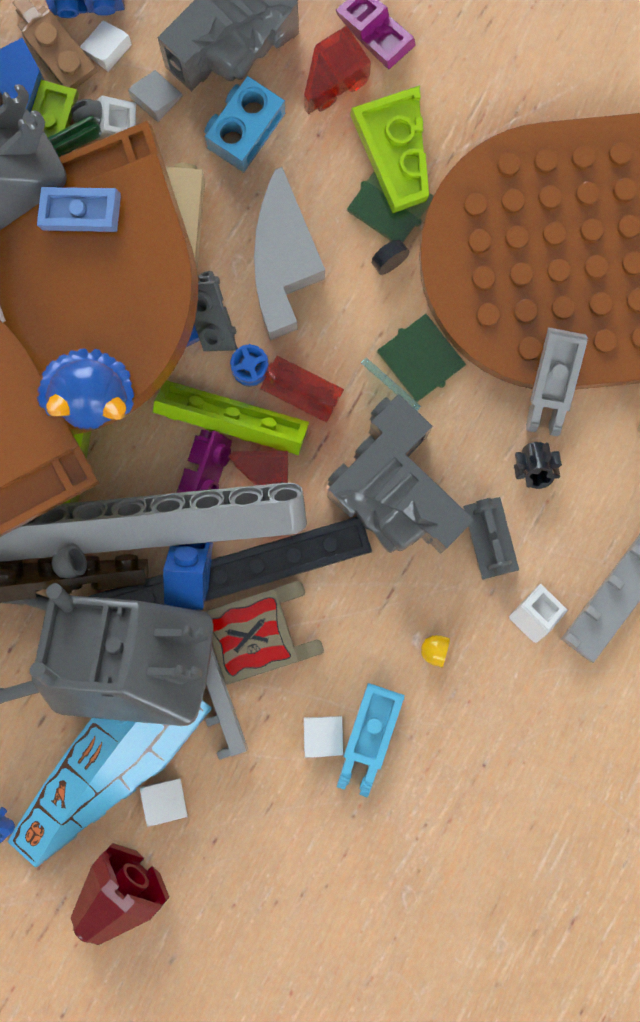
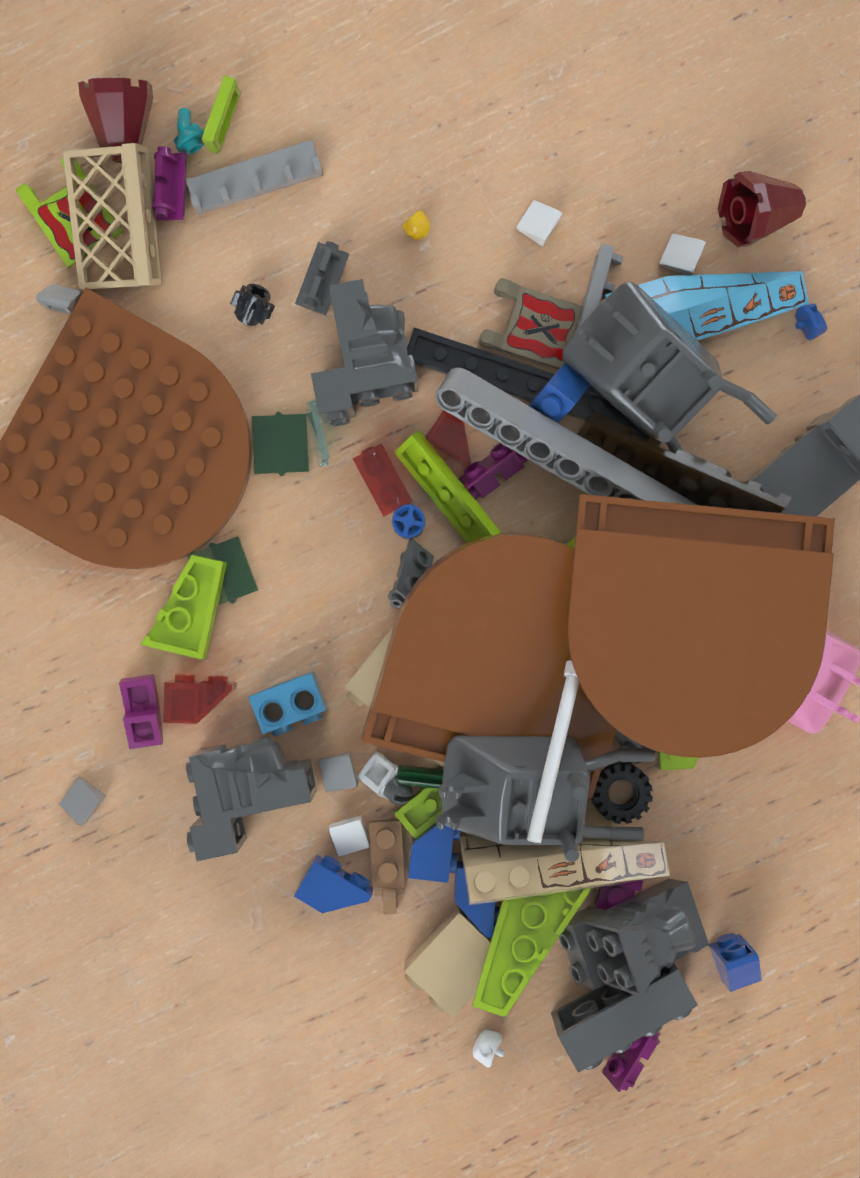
camera: 145 degrees left, 5 degrees up
(69, 562) = (637, 458): dark grey hinge -> none
(79, 209) = (458, 705): medium blue plate -> none
(86, 389) = (545, 561): blue hair -> none
(282, 256) = (328, 585): light grey slope -> none
(371, 735) = (505, 198): medium azure hinge -> none
(390, 256) = (251, 531): black tile -> none
(538, 614) = (326, 202): white slope -> none
(556, 378) = (194, 354): light grey hinge -> none

